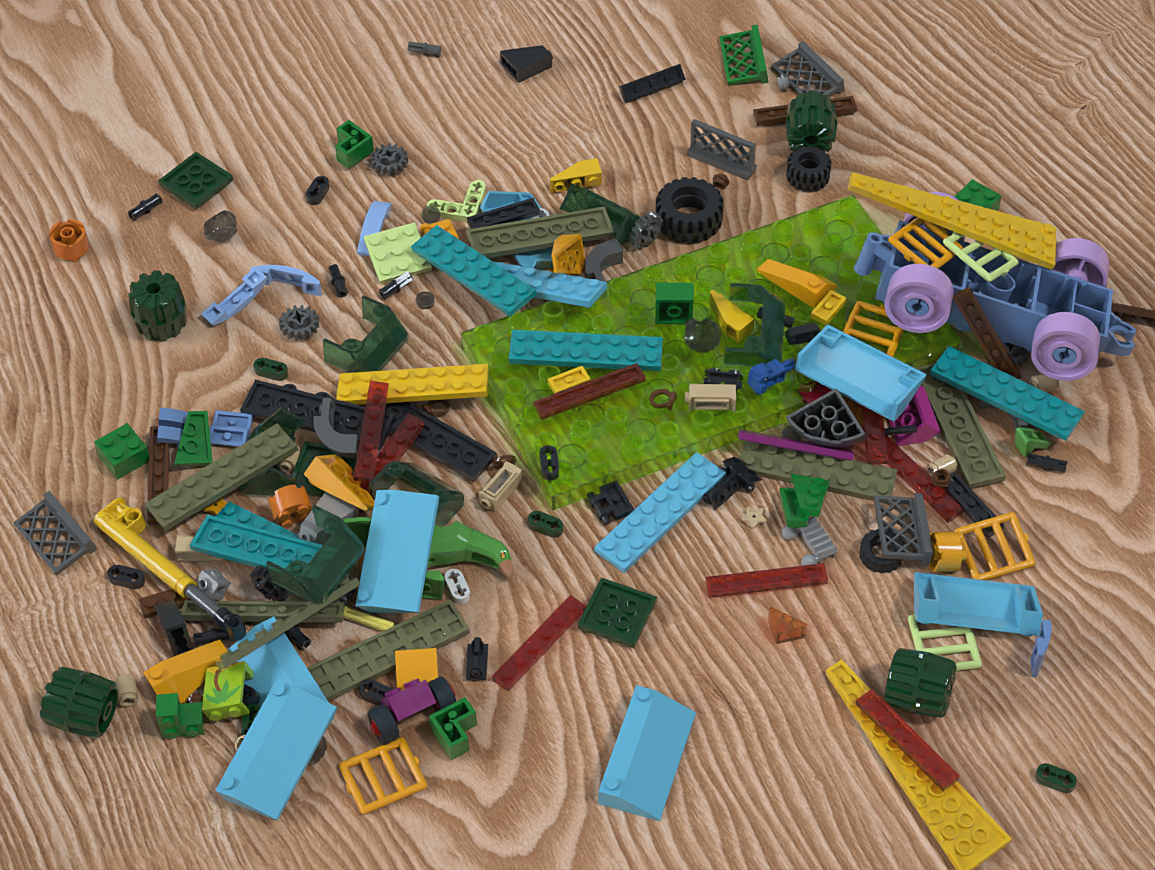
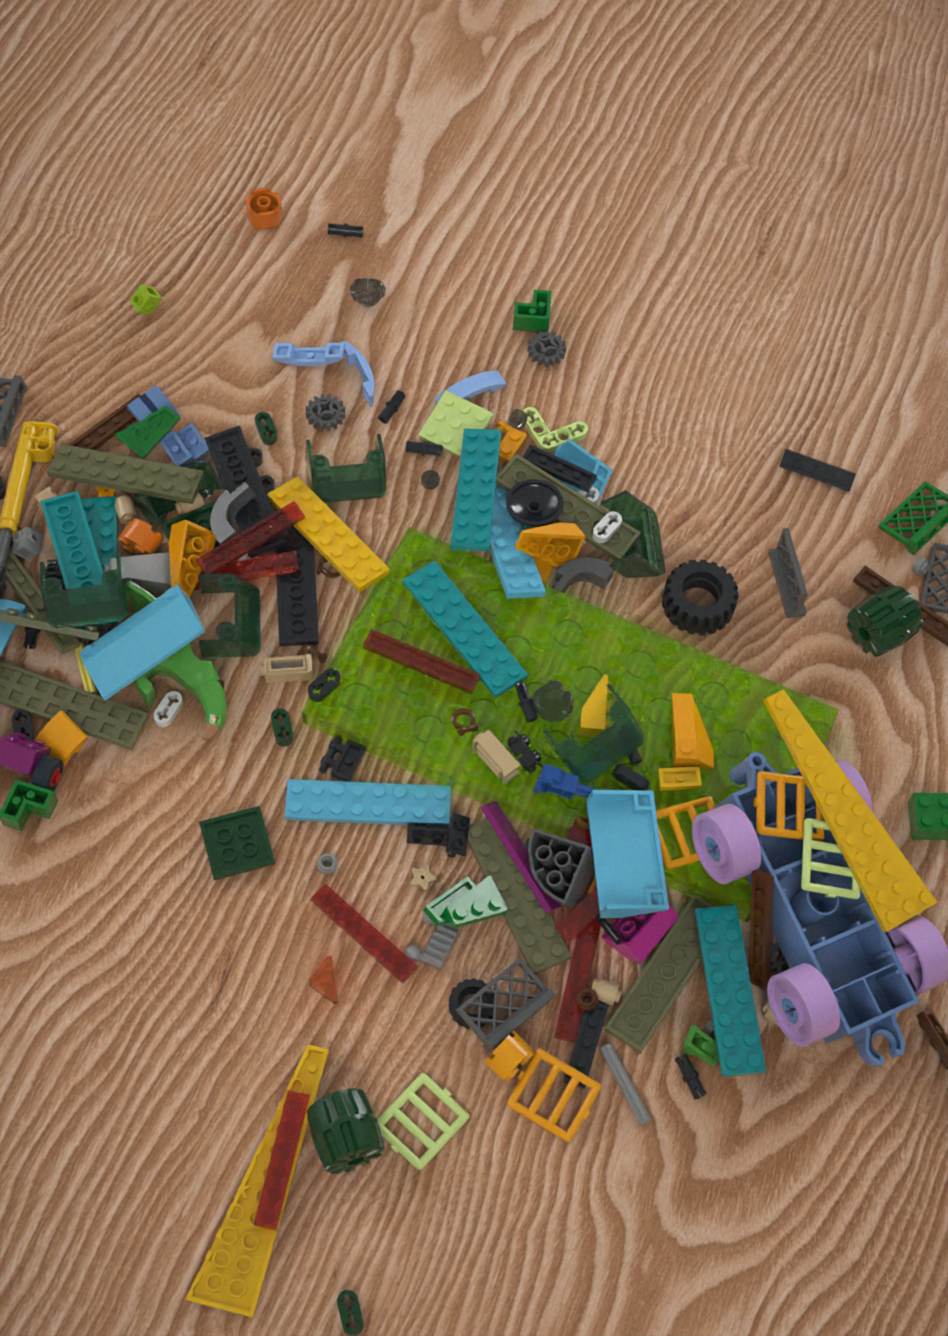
camera: 45 degrees right, 10 degrees up
(67, 367) = (145, 299): none -> lime brick
(122, 451) = (100, 392): green brick -> none
(157, 306) = (246, 310): dark green wheel -> none
(195, 180) = (401, 241): dark green plate -> none
(250, 501) = (125, 509): none -> tan brick
(314, 189) = (470, 325): black beam -> none
(424, 48) = (688, 286): dark grey axle -> none
(477, 660) = (108, 775): black hinge -> none
(523, 243) = (534, 503): none -> black dish
(526, 61) = (747, 365): black slope -> none
(539, 643) = (162, 806): clear red plate -> none
(568, 379) = (419, 638): yellow plate -> none
(579, 220) = (609, 529): none -> white beam
(583, 173) = (662, 491): yellow slope -> none
(646, 230) = (644, 580): dark grey gear -> none
(646, 754) = (115, 963): medium azure slope -> none
(674, 303) = (565, 656): green brick -> none
(684, 352) = (526, 703): none -> black axle
(688, 563) = (327, 858): none -> light grey plate
(720, 181) = (760, 598): reddish brown plate -> none
(808, 168) = (834, 667): black tyre -> none
(976, 604) = (477, 1120): medium azure slope -> none
(1020, 503) = (625, 1084): none -> light grey axle
(1040, 647) = (465, 1211): medium blue slope -> none

